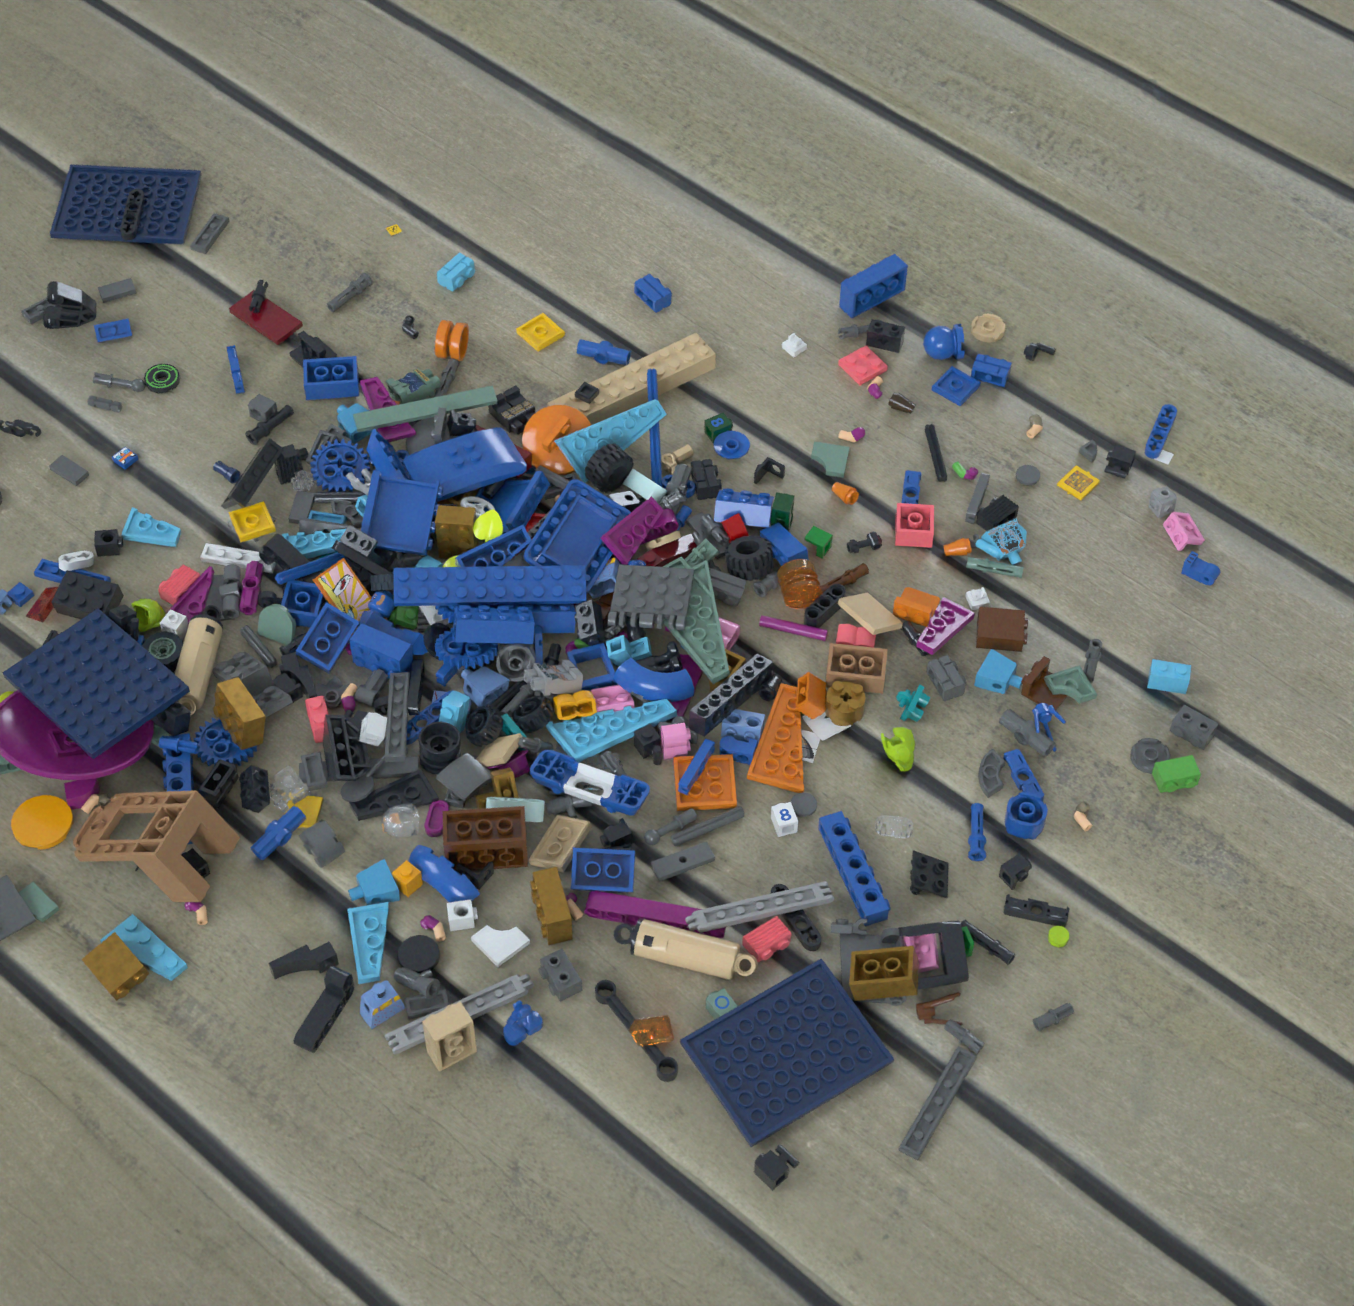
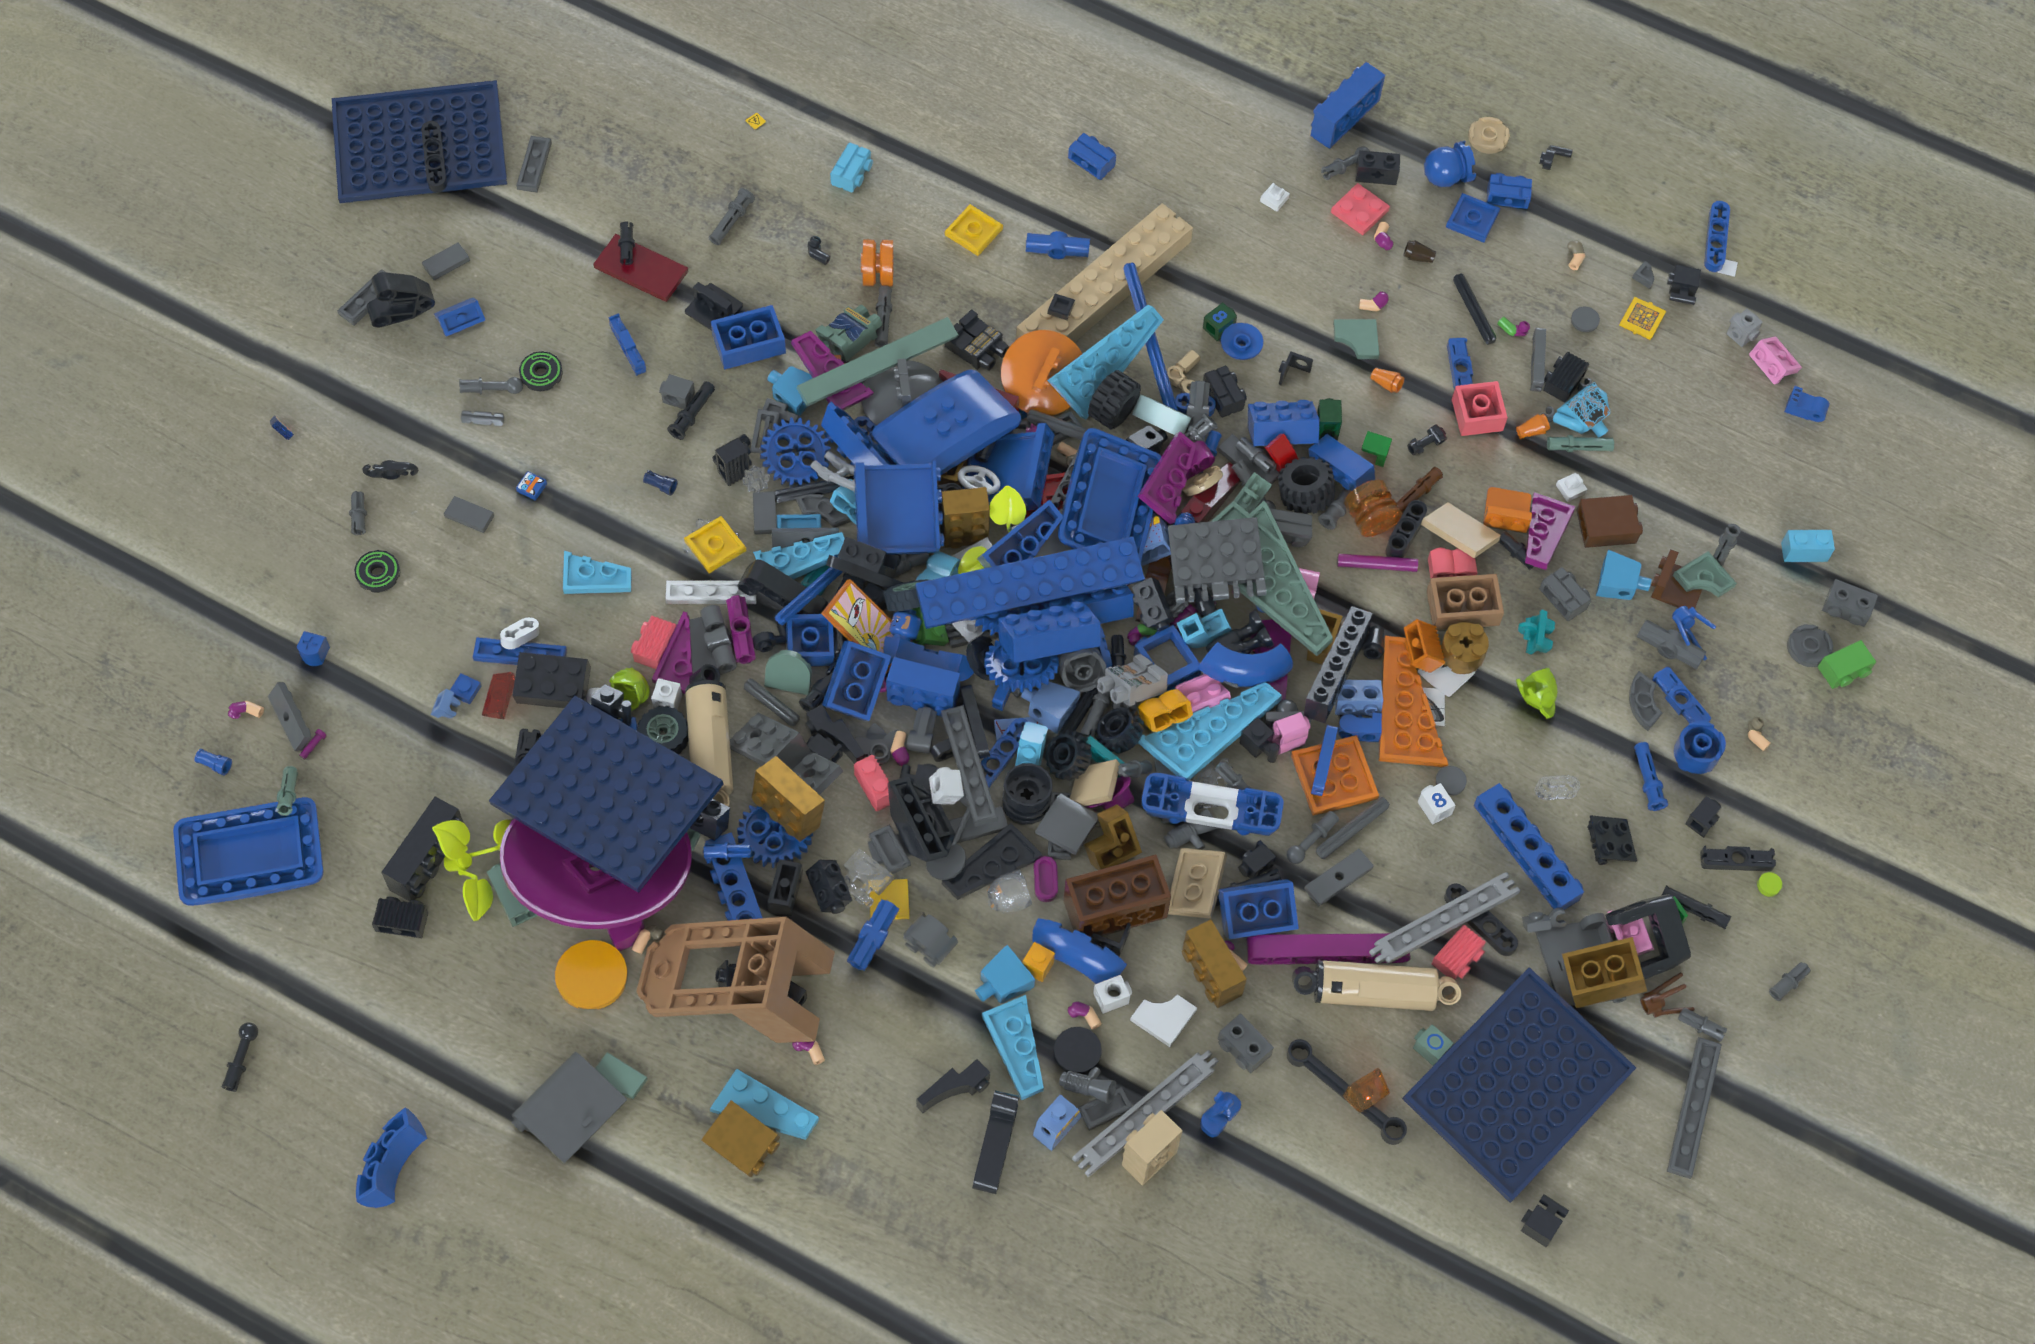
camera: 15 degrees left, 10 degrees up
(107, 542) = (548, 594): black brick -> none
(253, 475) = (705, 486): black fence -> none
(460, 423) = (925, 373): black brick -> none
(533, 807) = (1137, 849): light aqua beam -> none

